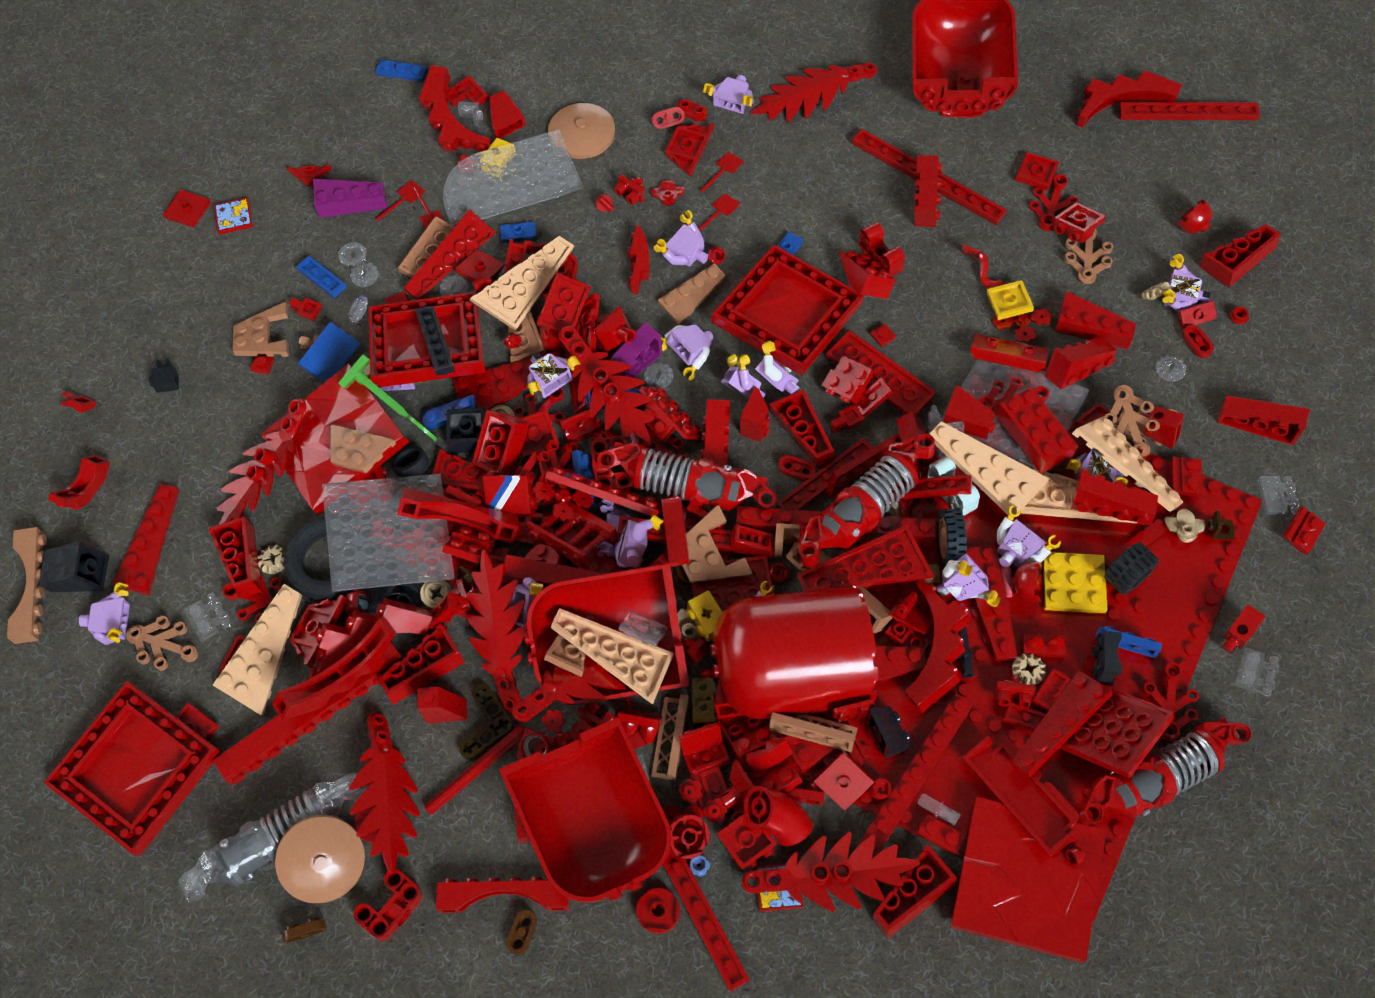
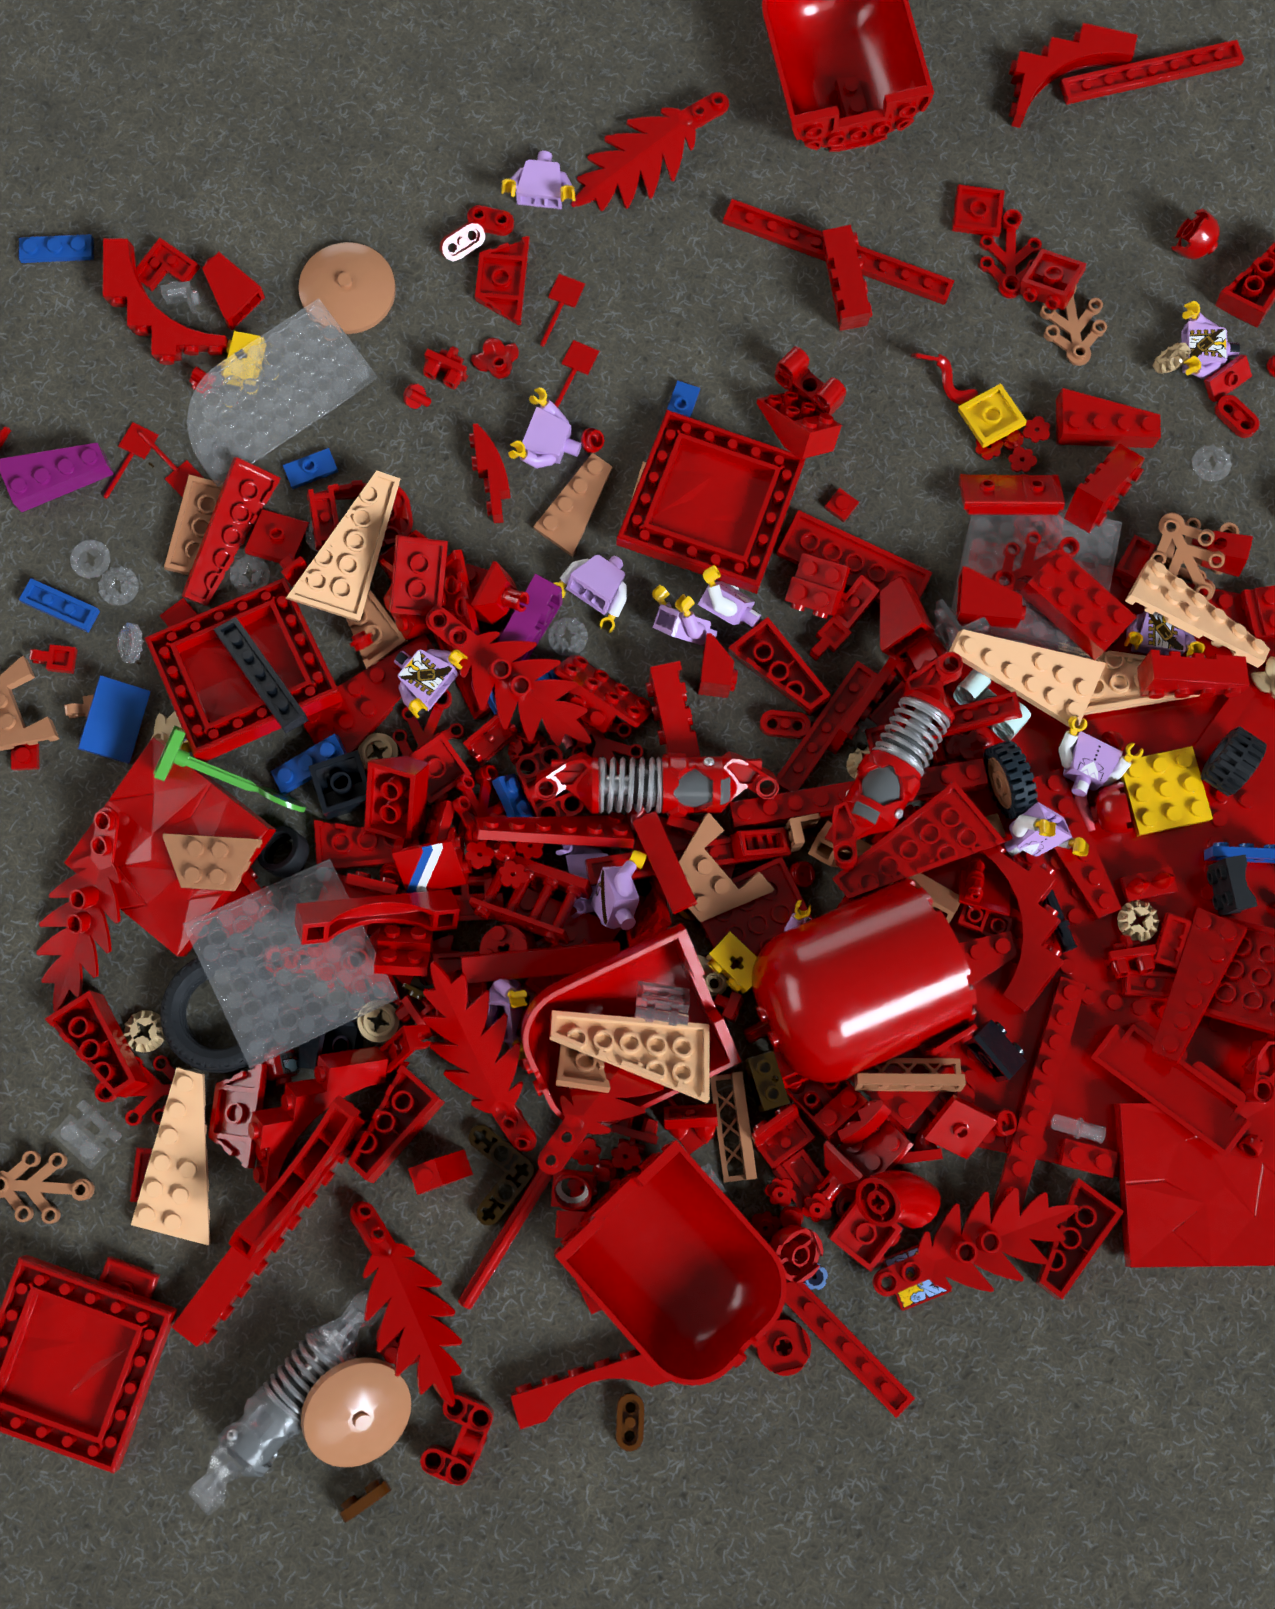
camera: 25 degrees left, 15 degrees up
(901, 412) = (901, 618): none -> red slope

